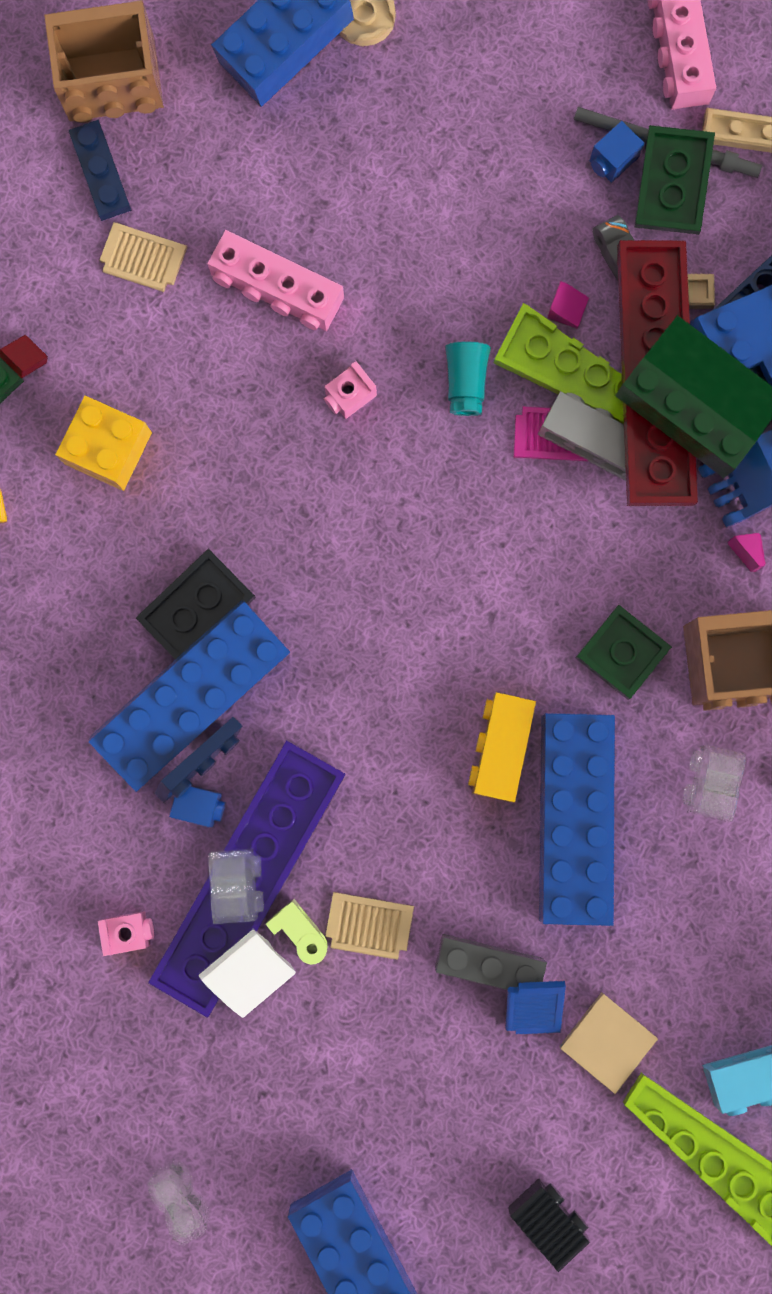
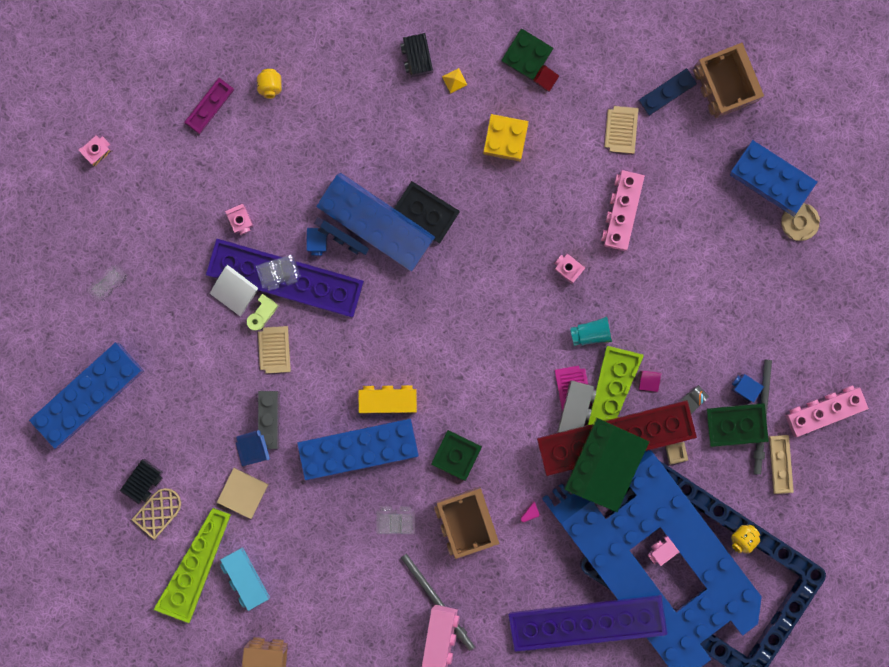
camera: 75 degrees right, 5 degrees up
(631, 1239) = (154, 536): none -> tan window

